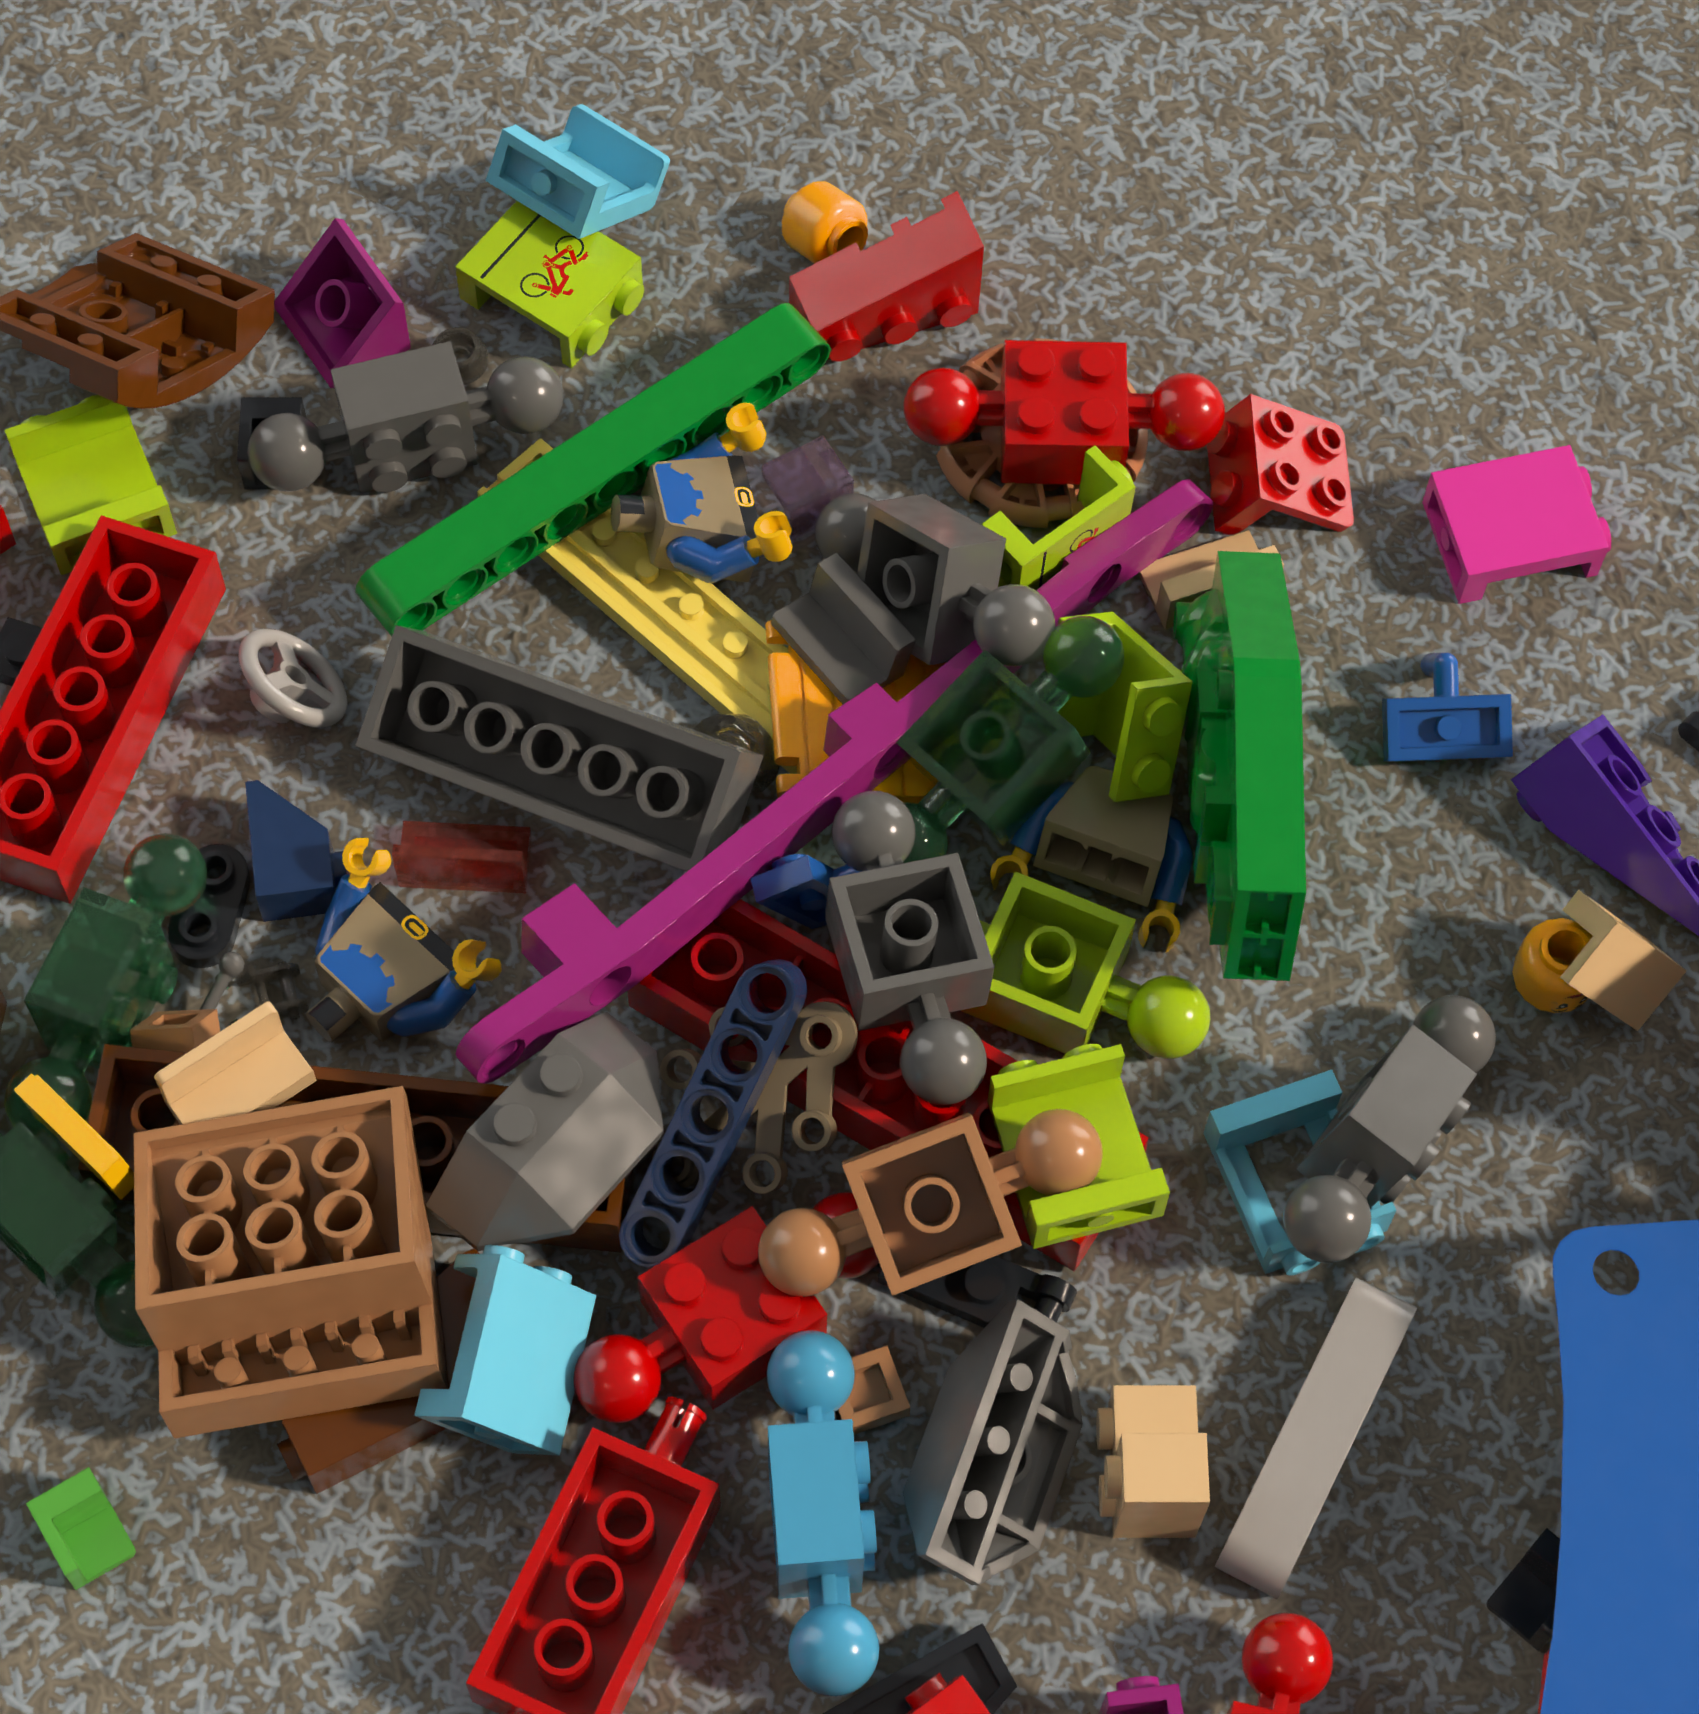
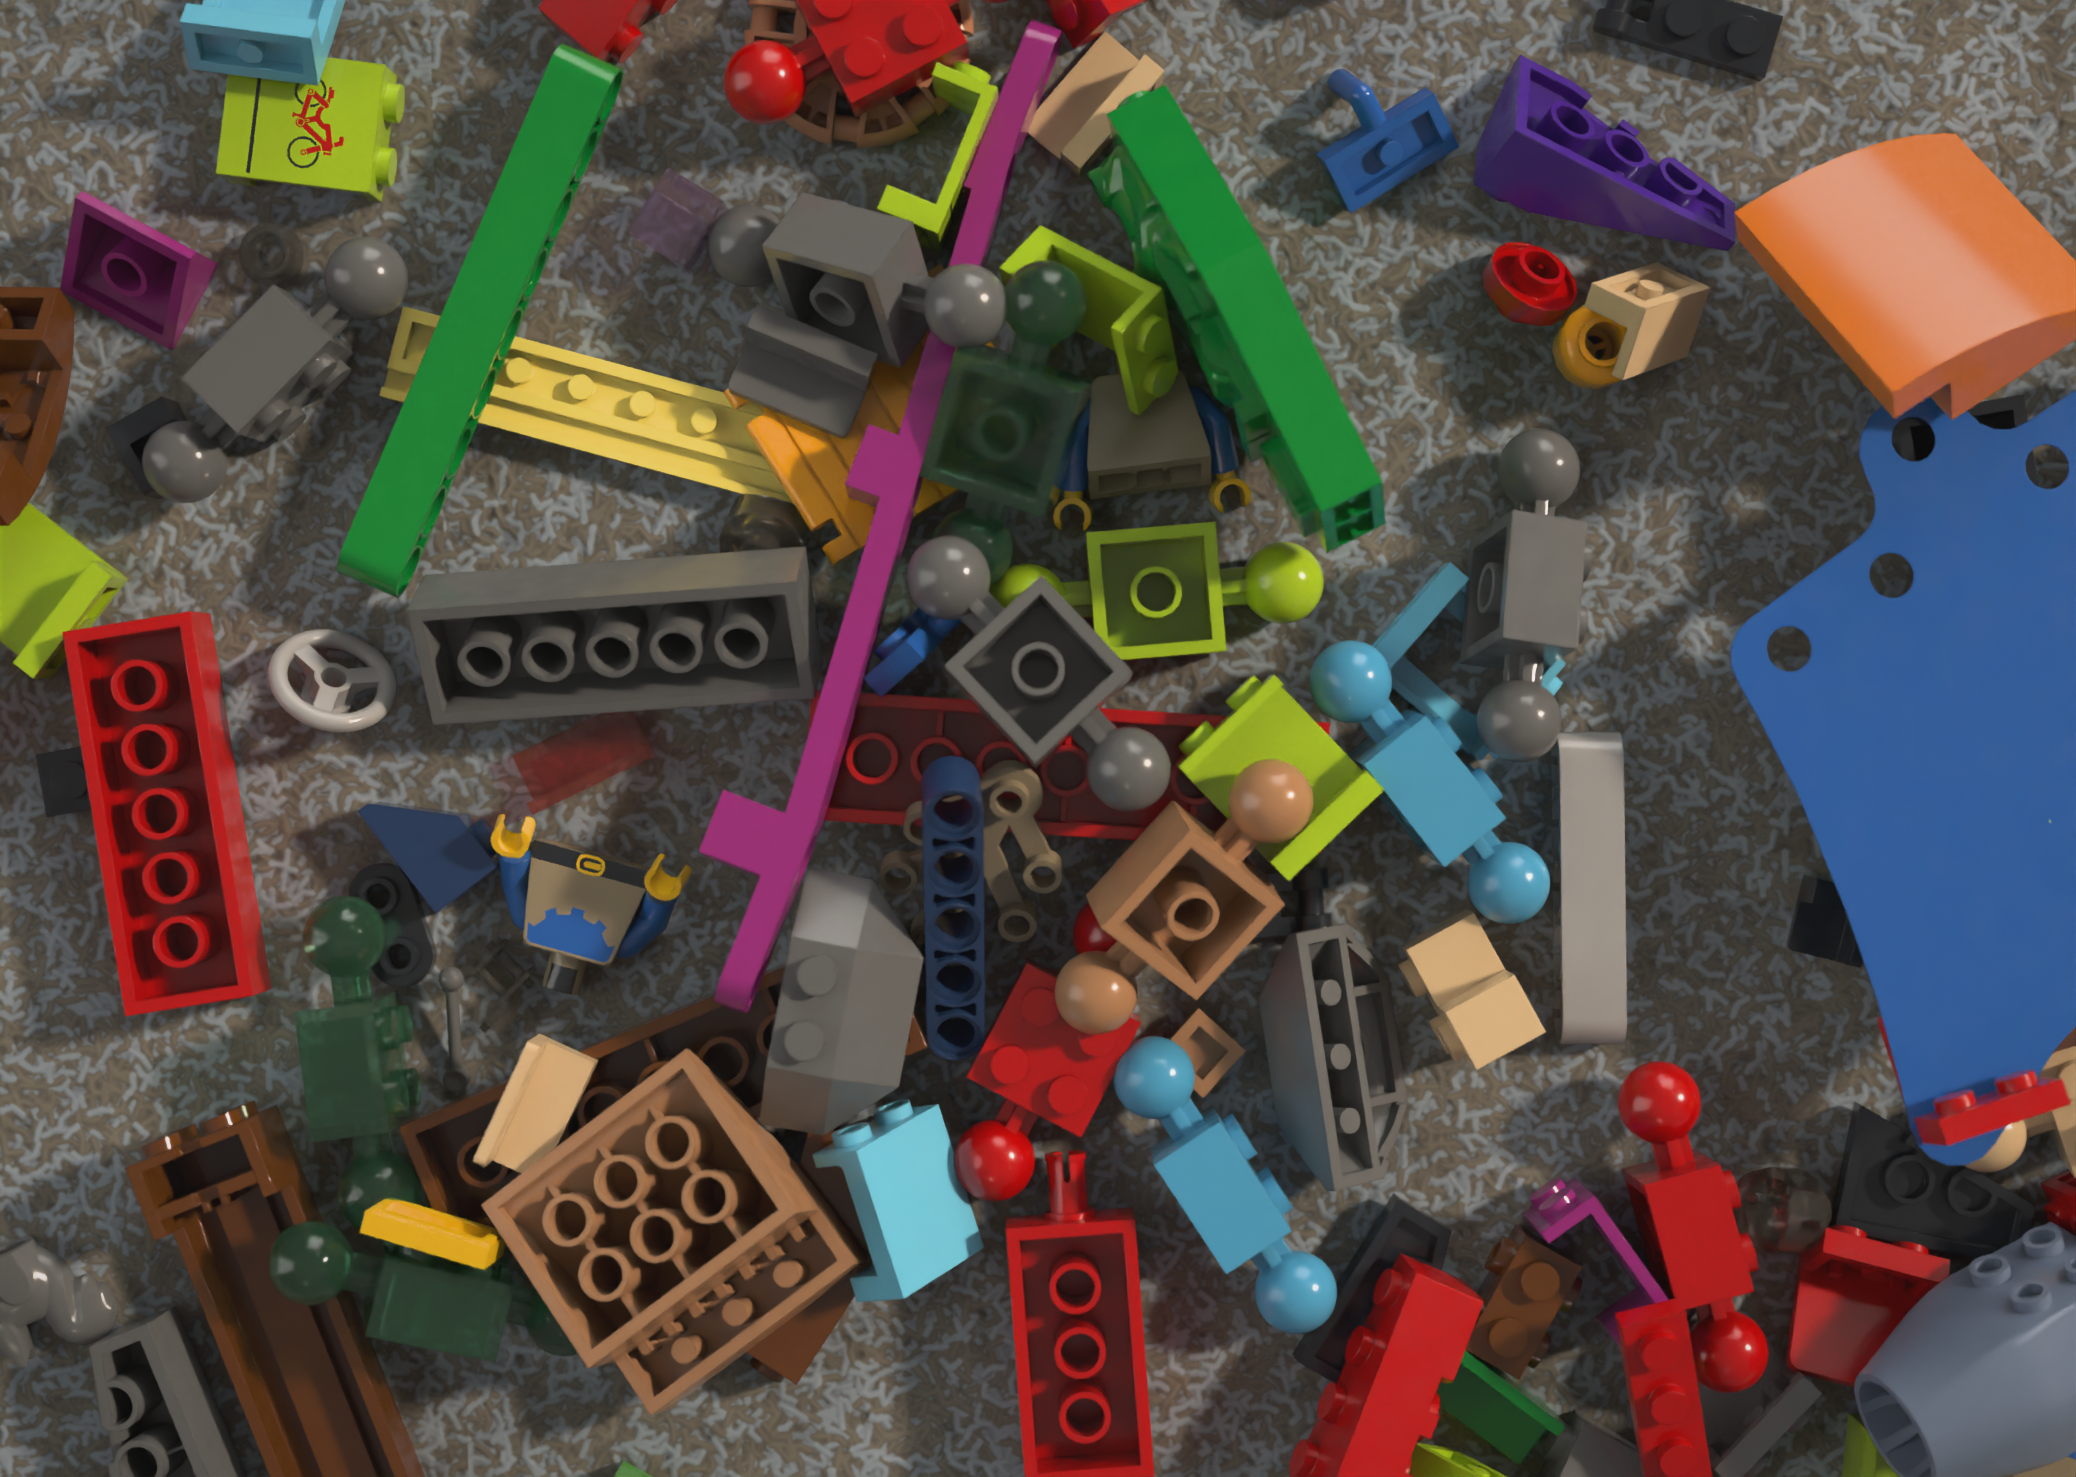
camera: 30 degrees left, 25 degrees up
(176, 1030) = (445, 1071): medium nougat plate -> none
(702, 508) = (600, 309): torso -> none
(1212, 1249) = (1427, 787): none -> dark azure brick
(1519, 888) = (1529, 284): none -> red plate

